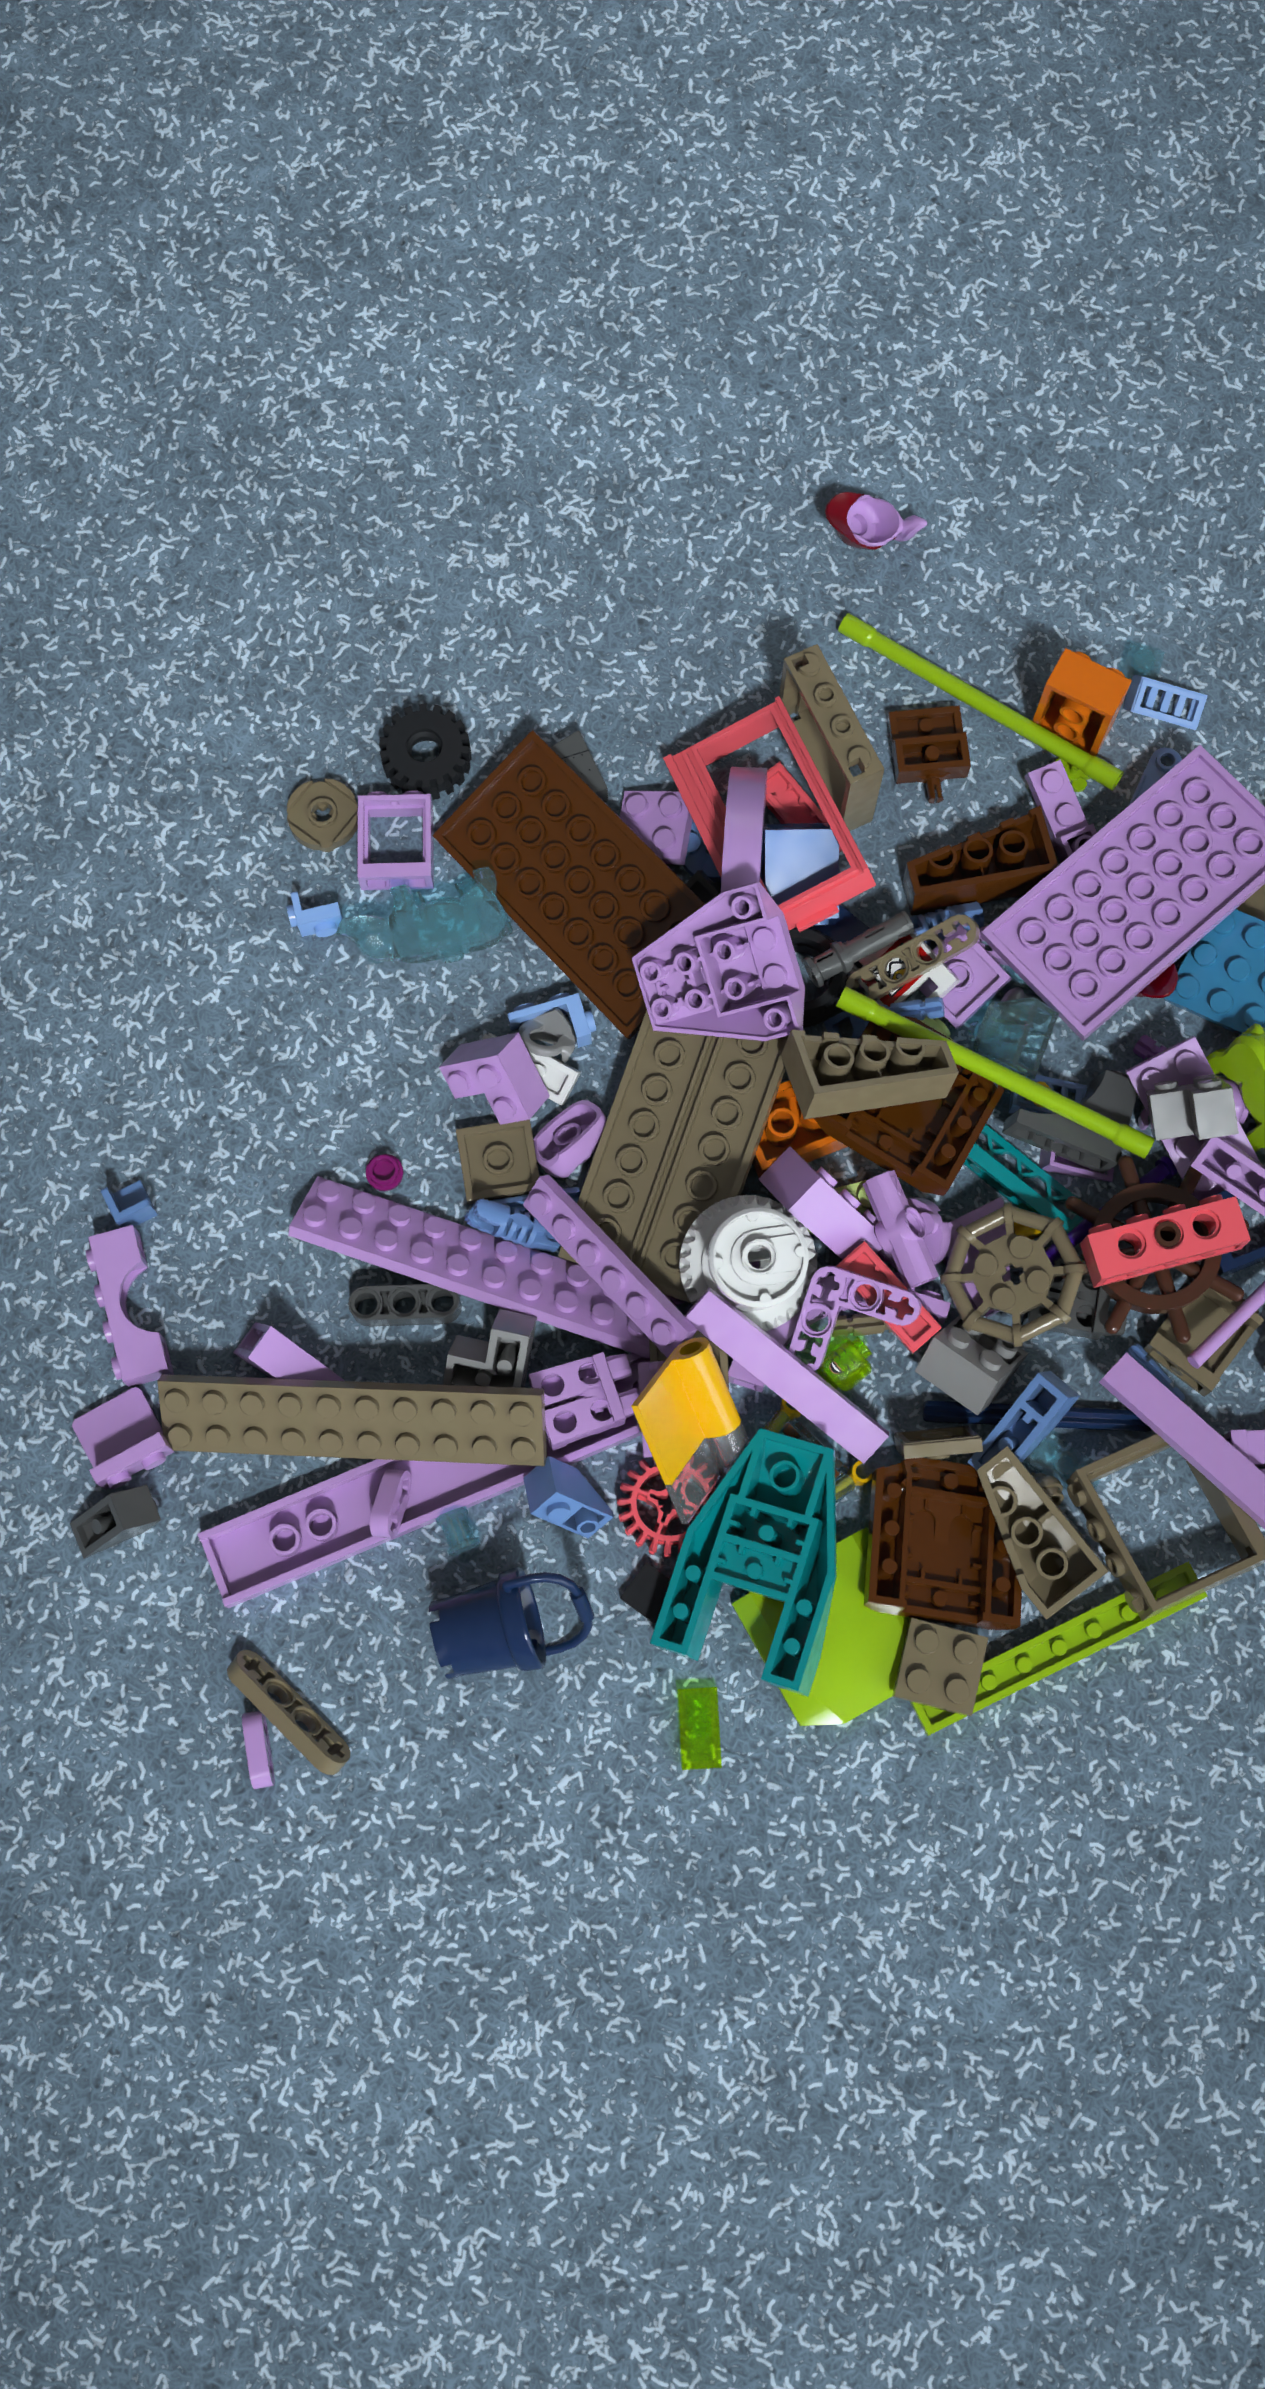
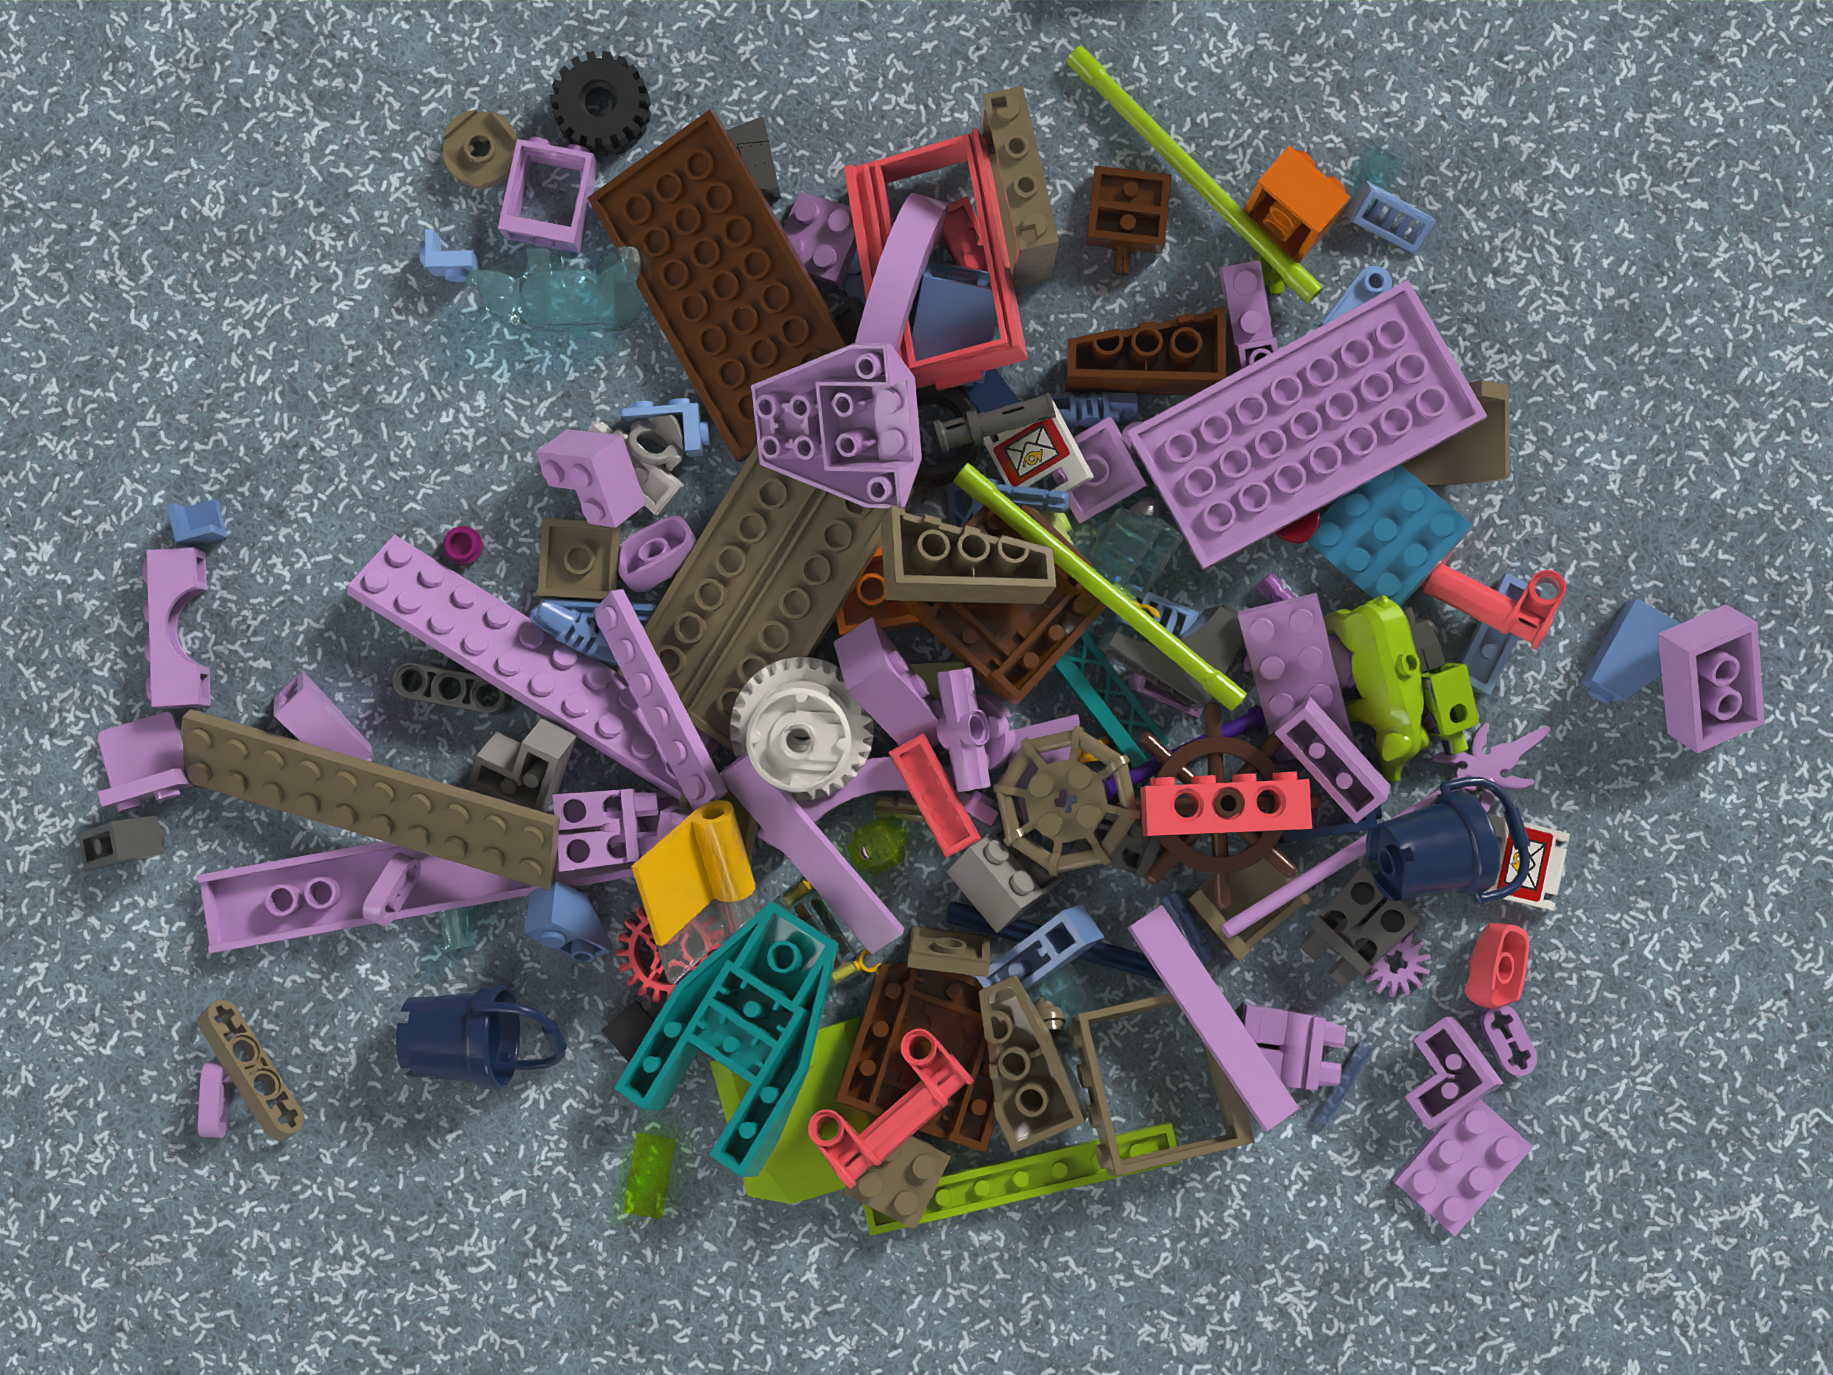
camera: 15 degrees right, 10 degrees up
(846, 1298) = (889, 788): lavender beam -> none
(910, 955) = (1047, 445): dark tan beam -> none
(960, 1561) = (855, 1153): none -> coral piece
(1192, 1109) = (1292, 674): light grey brick -> none

